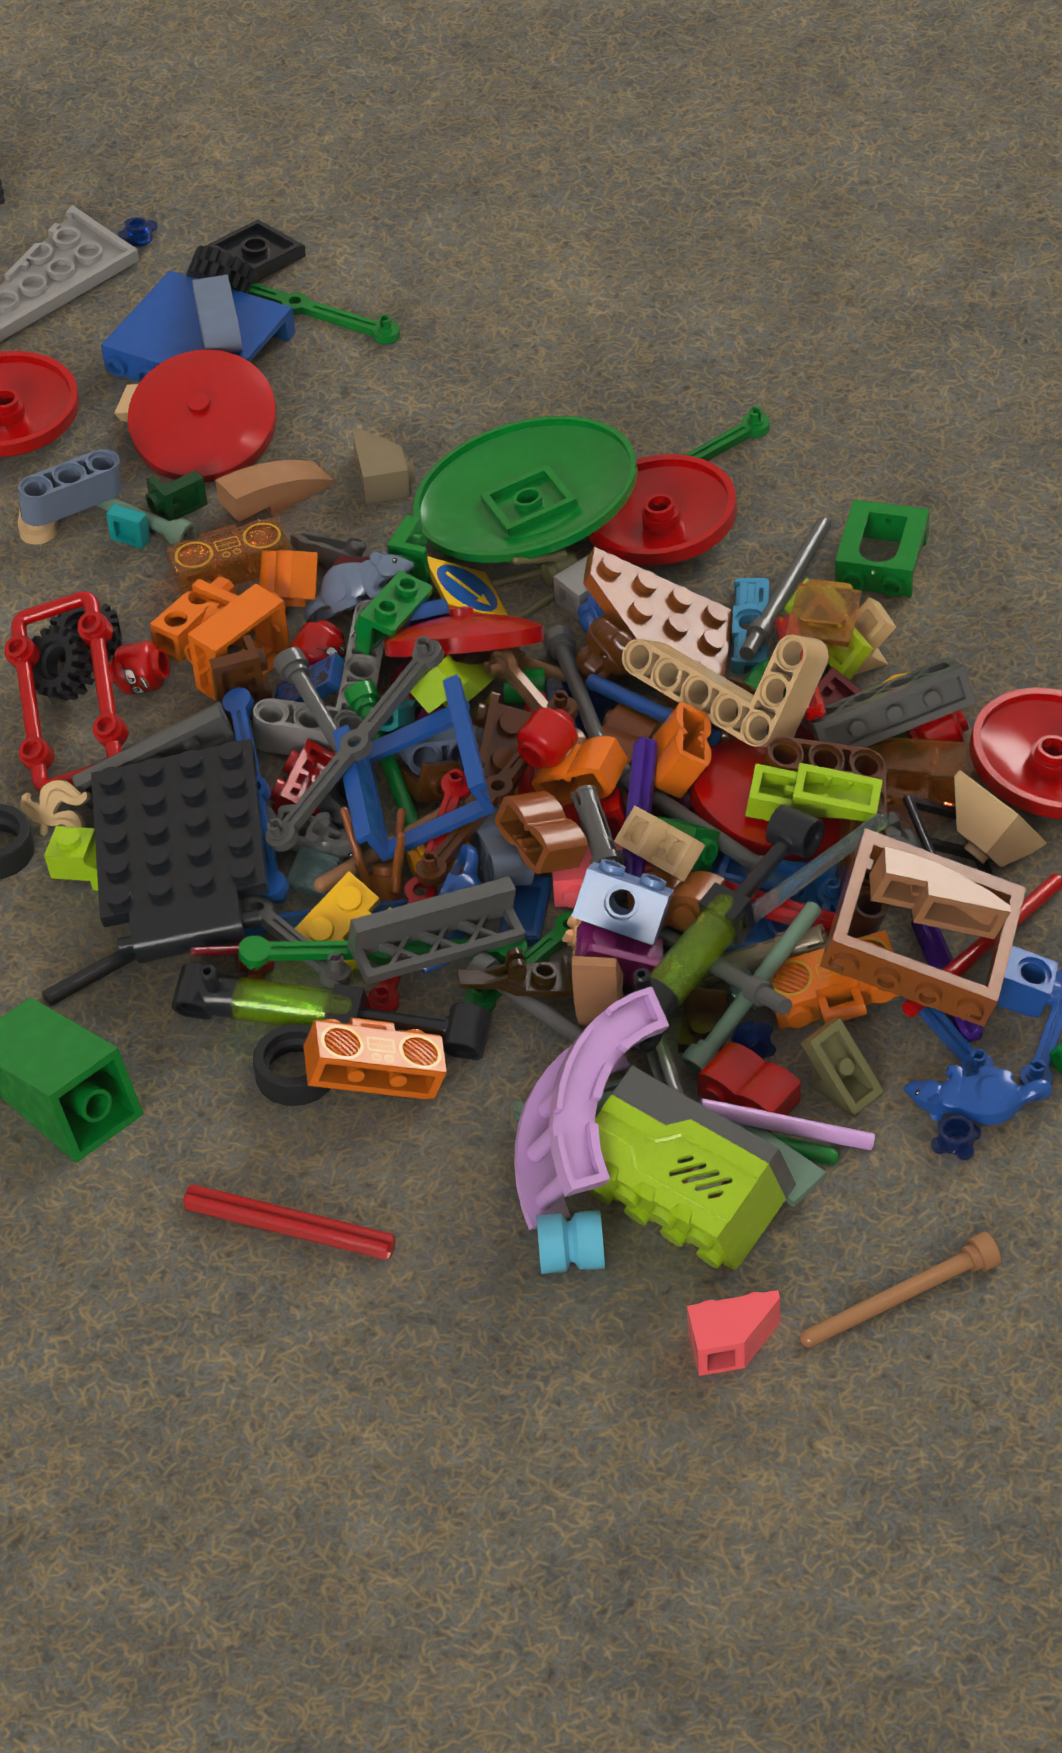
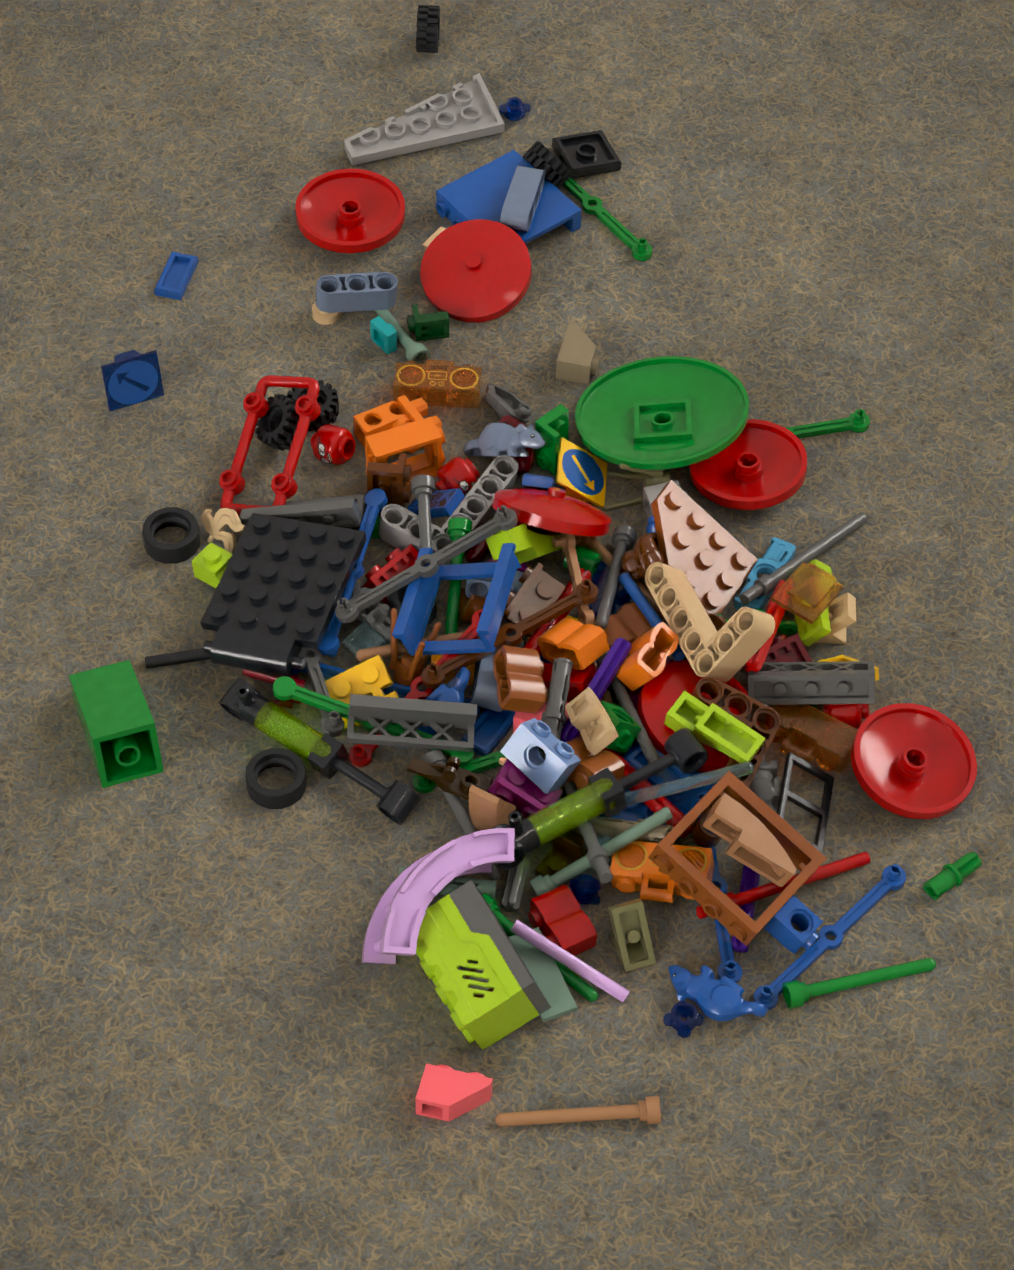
camera: 20 degrees right, 5 degrees up
(270, 486) = (496, 341): medium nougat slope -> none
(289, 1221) = (212, 889): red axle -> none
(290, 575) = (463, 417): orange brick -> none
(374, 1058) = (324, 796): orange piece -> none
(390, 610) = (511, 471): green bracket -> none
(401, 716) = (477, 554): teal bar -> none
(546, 738) = (558, 611): red head -> none
(570, 1241) = (375, 981): medium azure wheel -> none
(887, 523) = (884, 580): green panel -> none
(991, 825) = (839, 797): tan slope -> none

